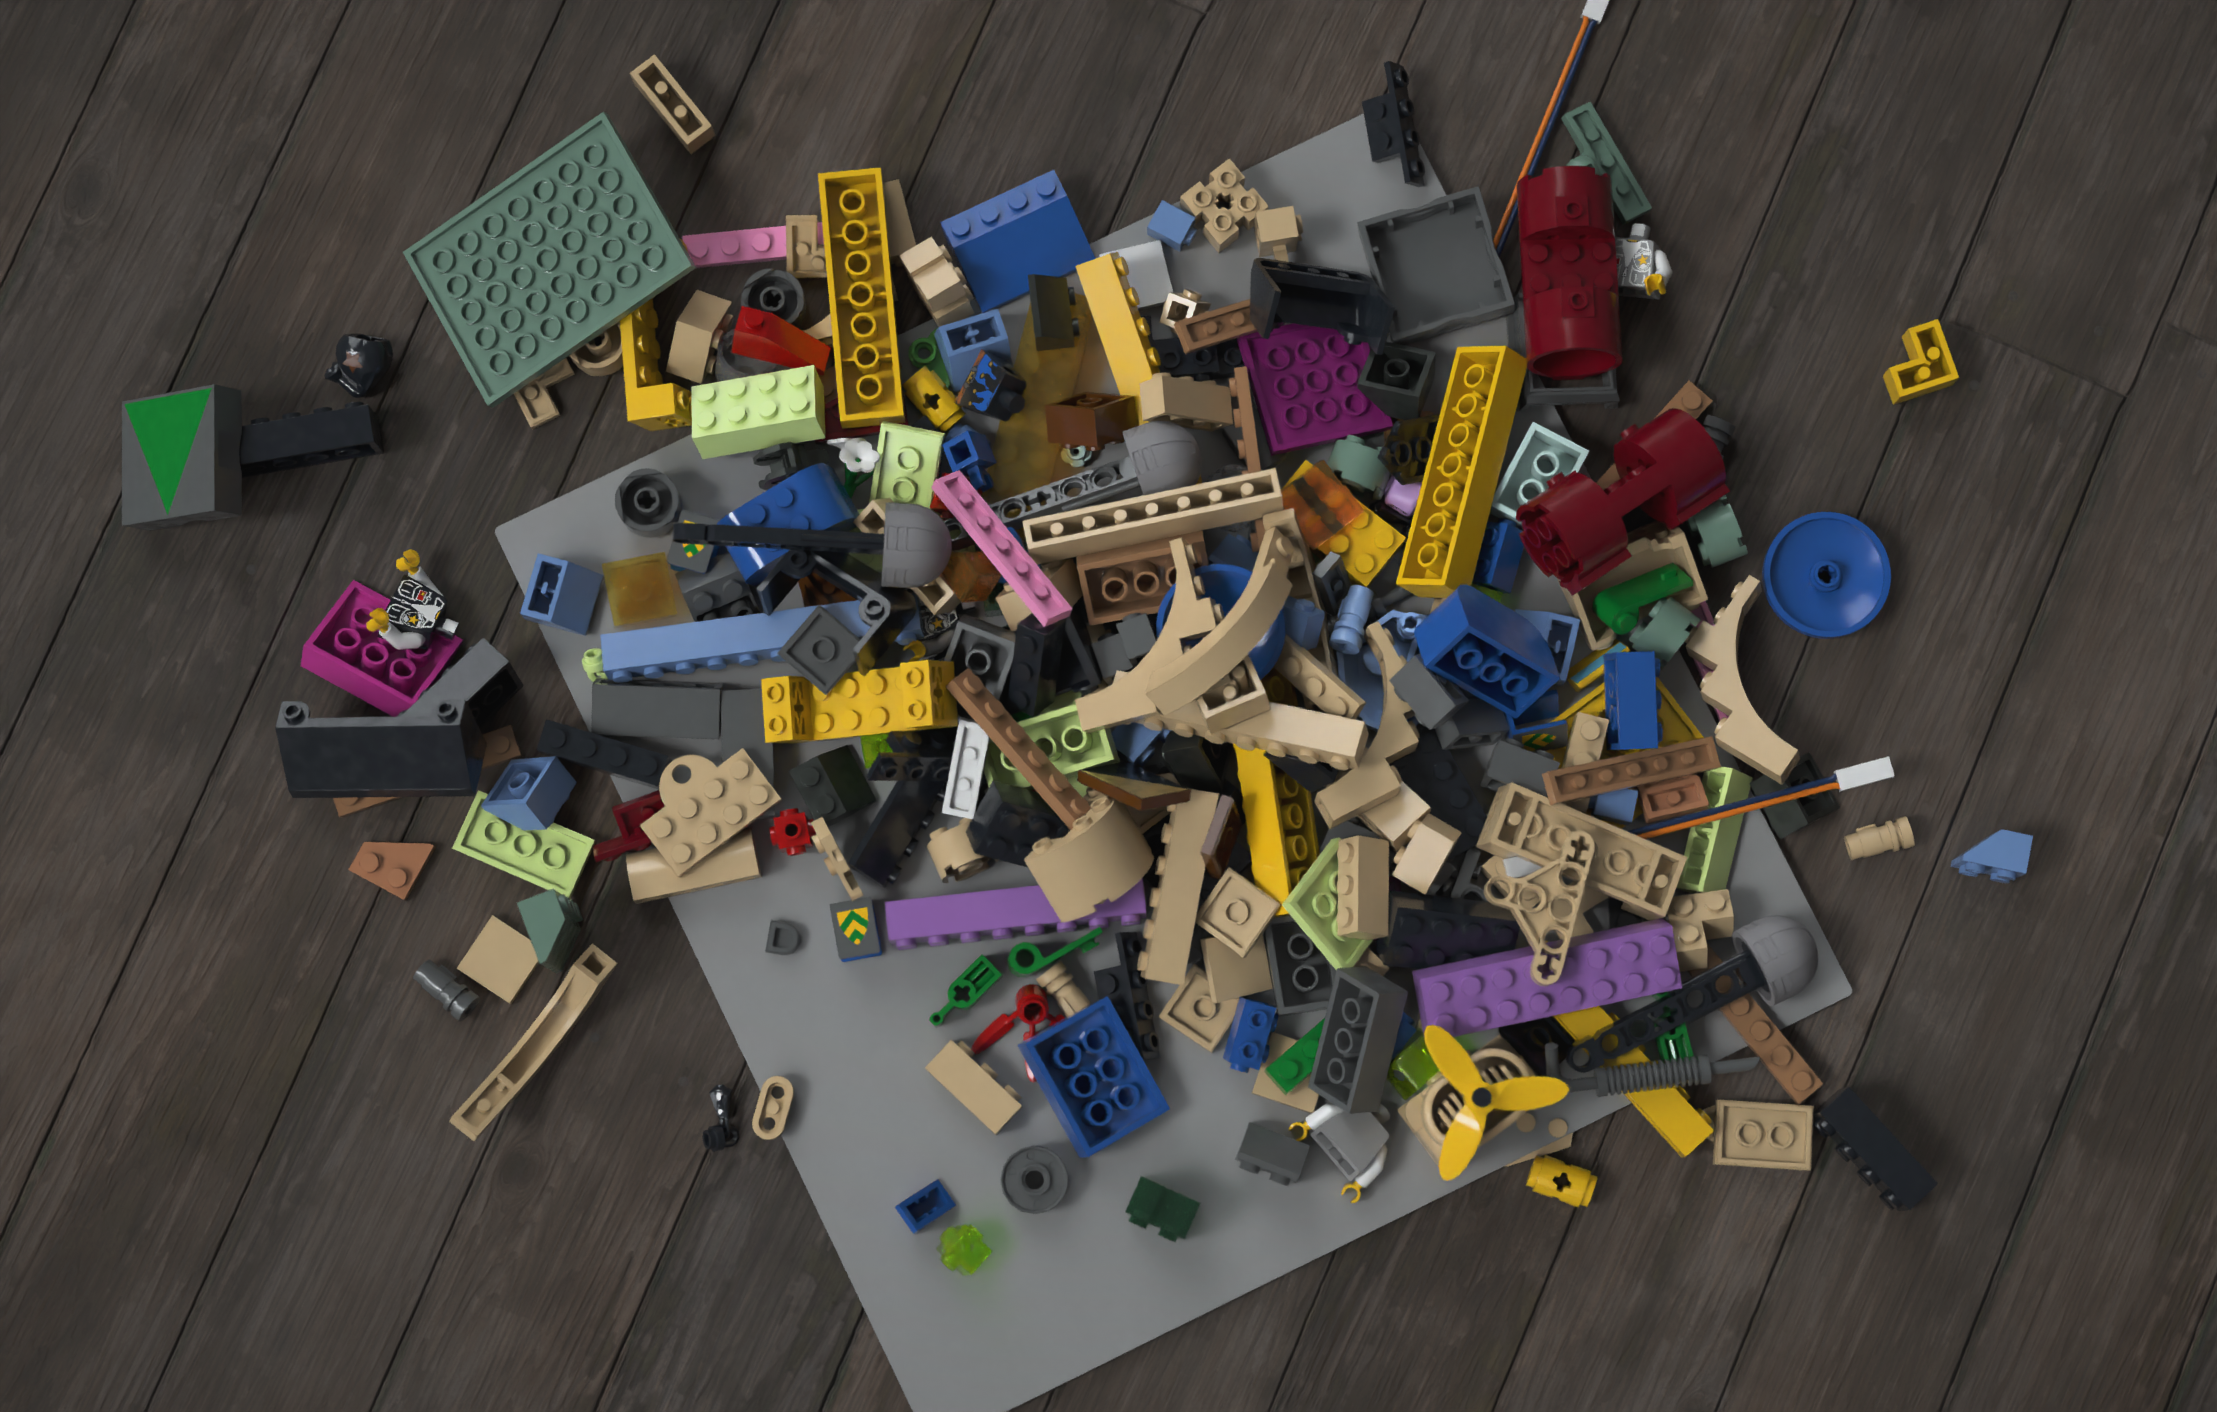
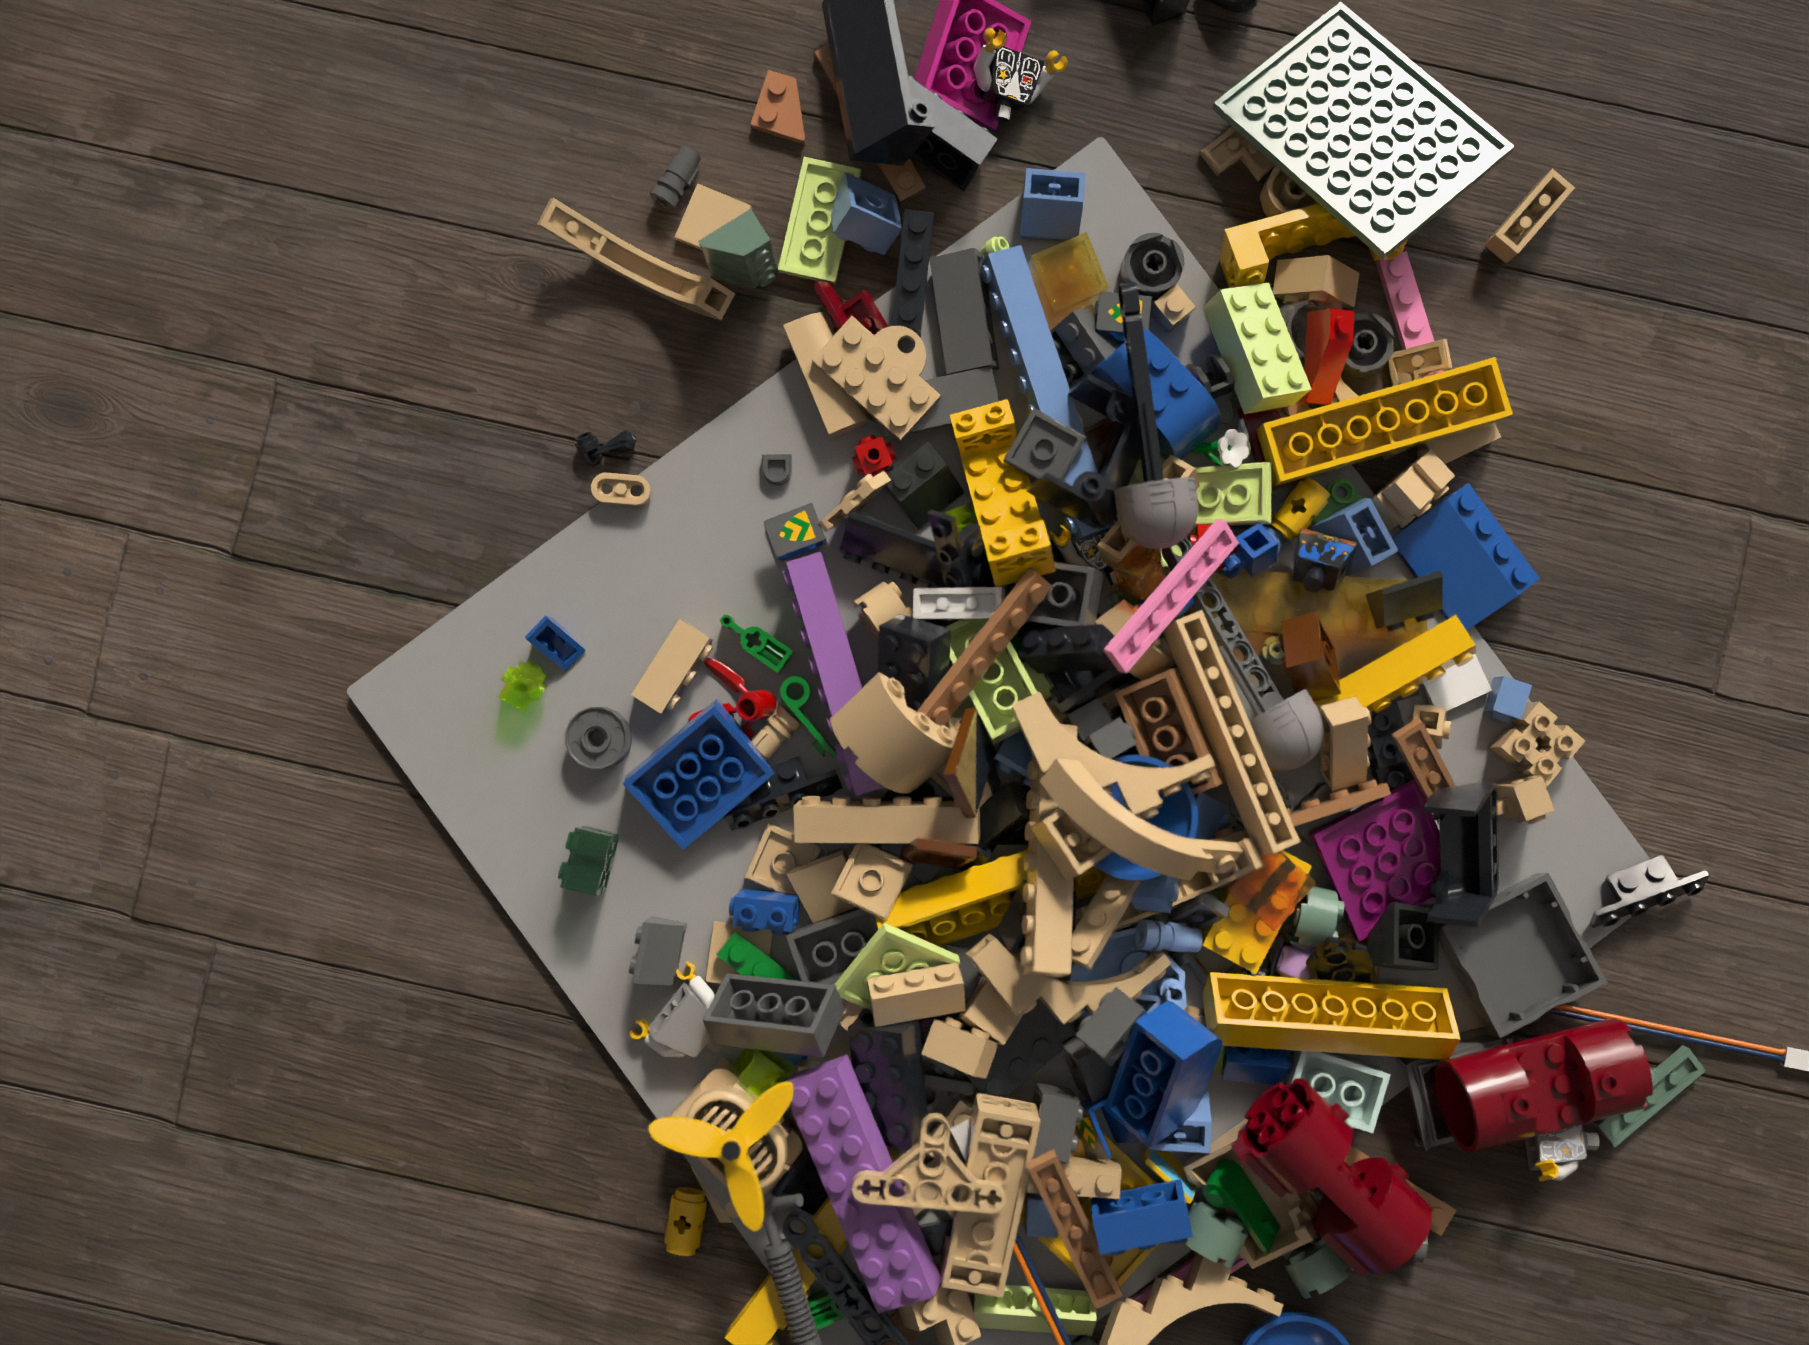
camera: 75 degrees right, 5 degrees up
(696, 490) = (1172, 308): none -> tan brick
(1672, 798) = (1056, 1268): nougat wing -> none

